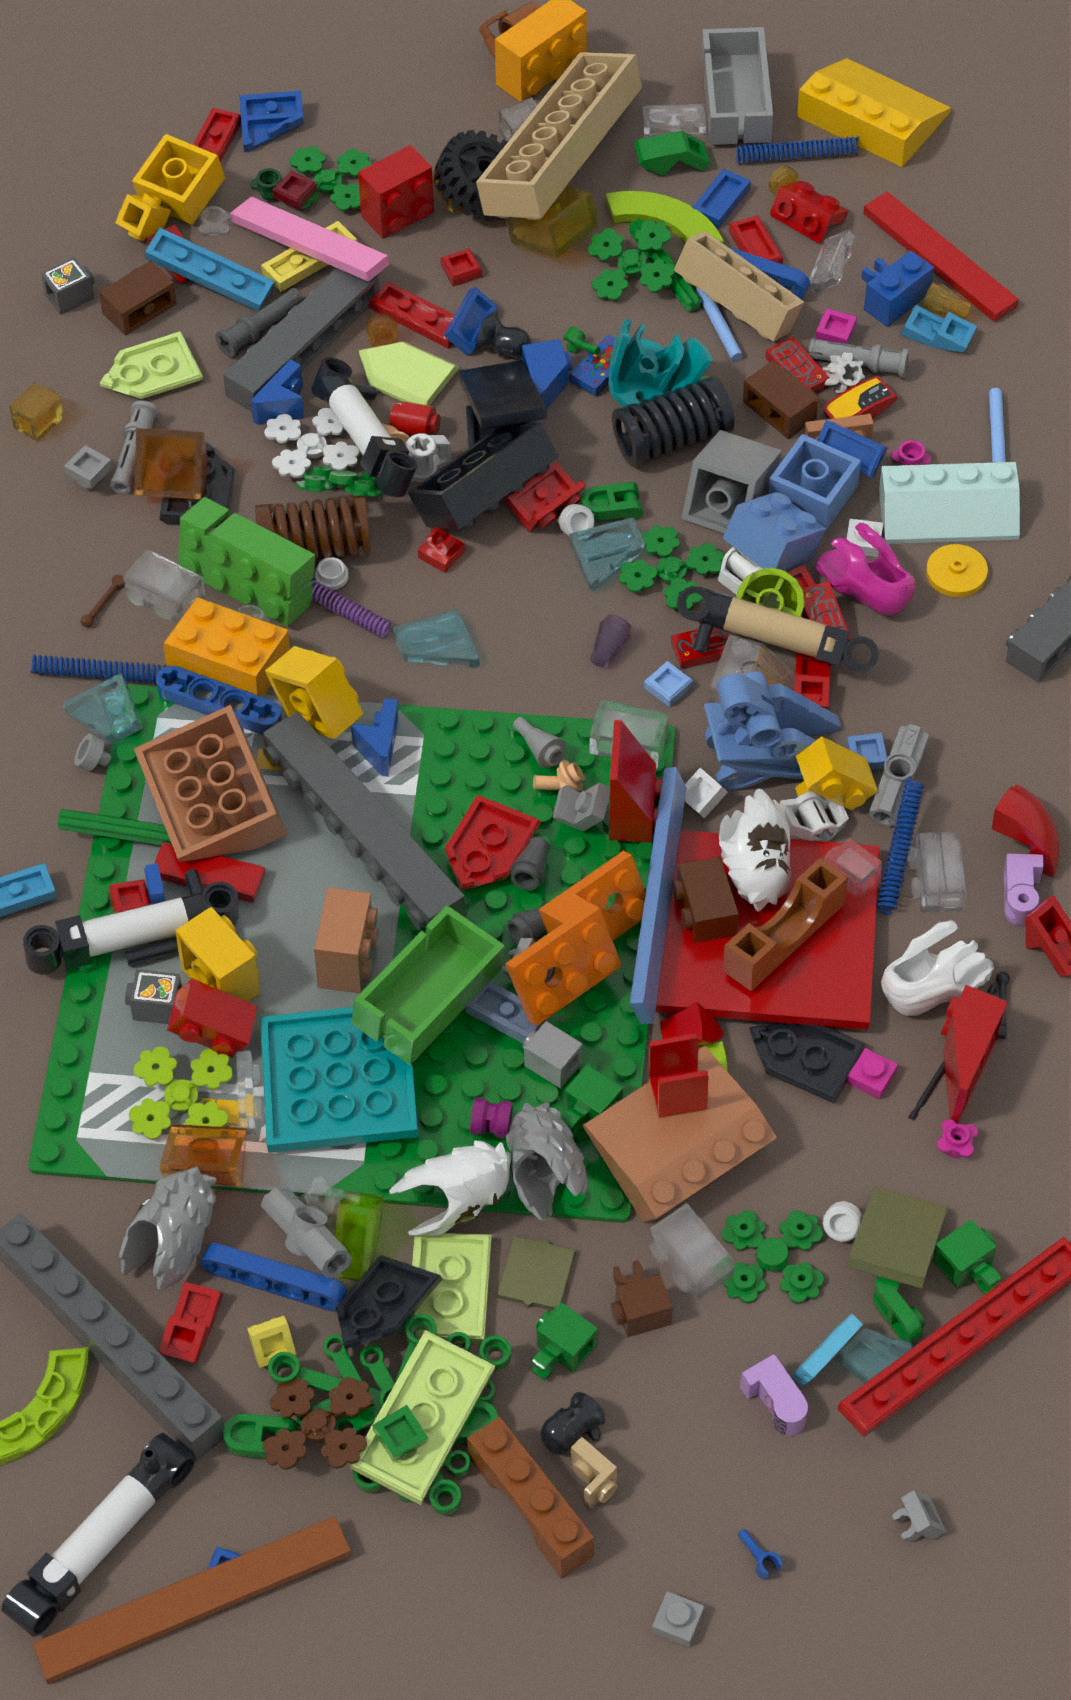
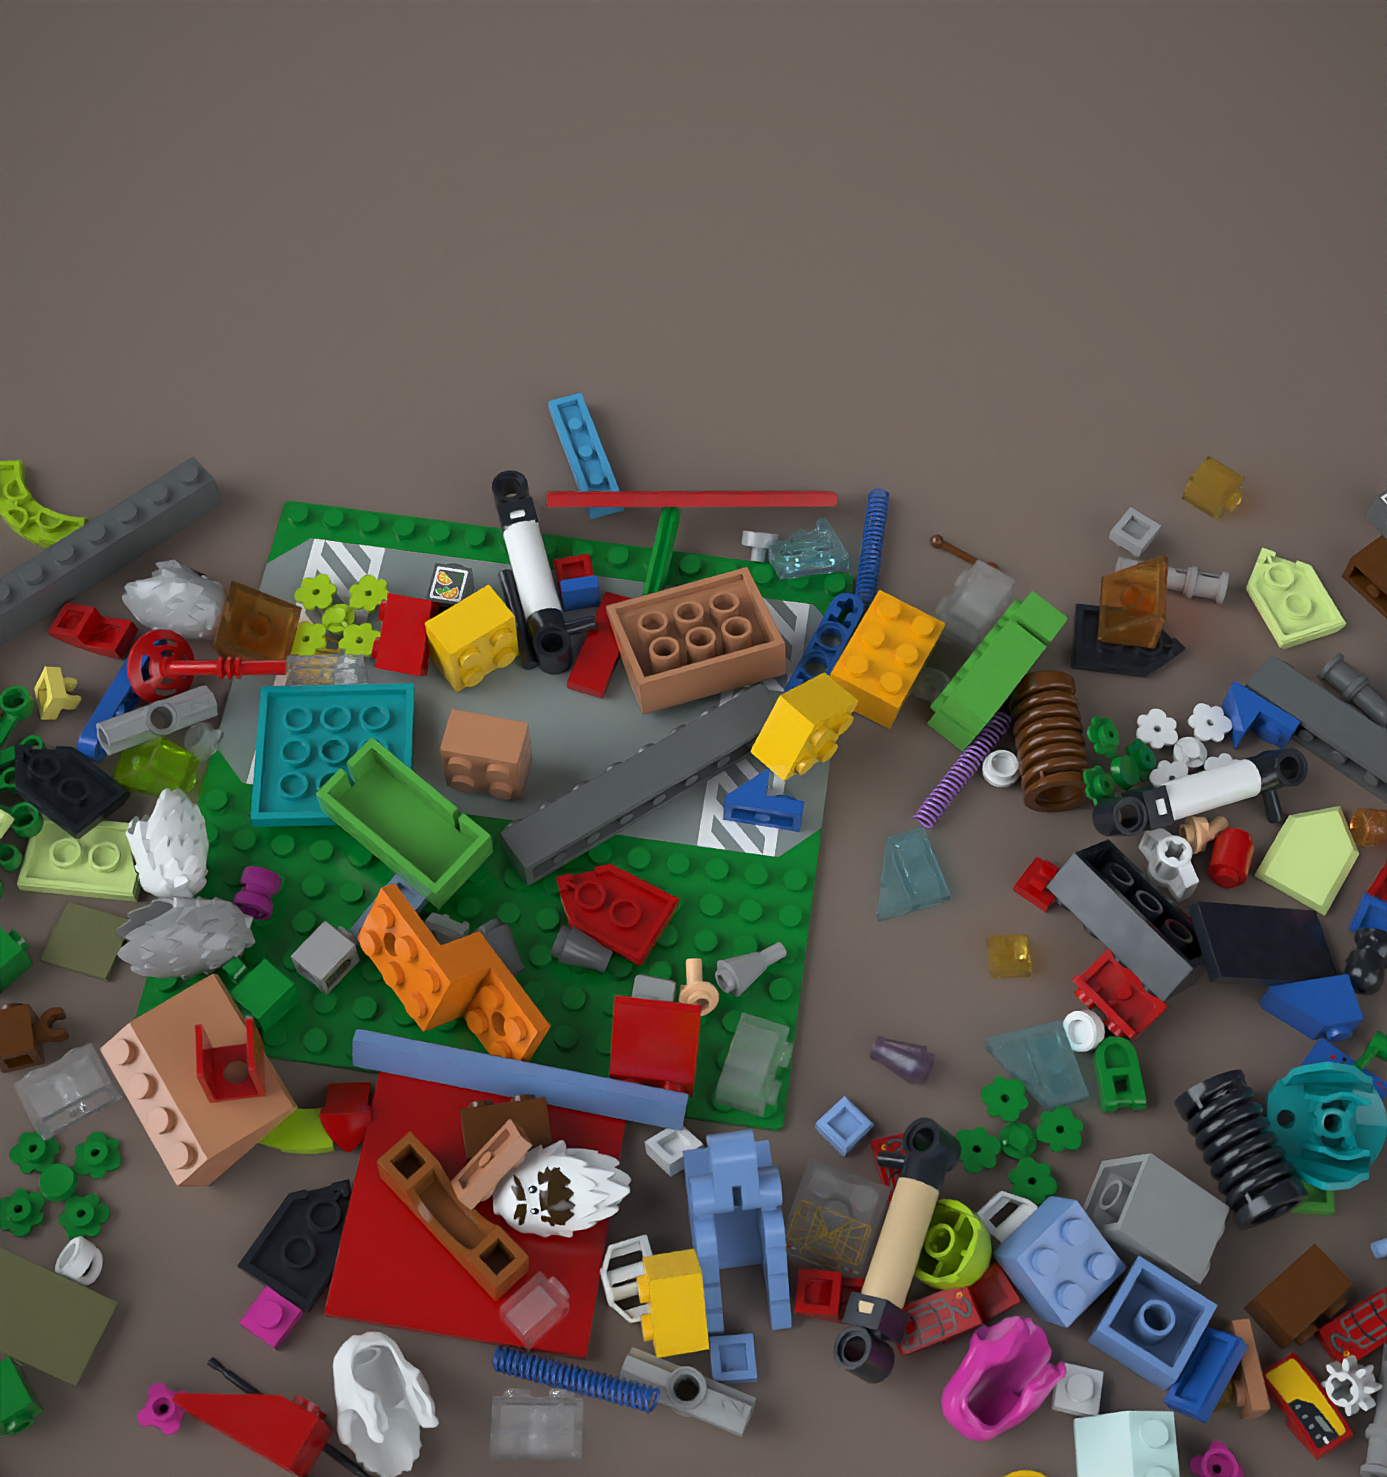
camera: 90 degrees right, 5 degrees up
(48, 805) = (690, 498): none -> red tile
(248, 1227) = (174, 666): none -> red dish
(509, 572) = (1009, 956): none -> clear yellow tile
(746, 887) = (483, 1172): none -> nougat plate

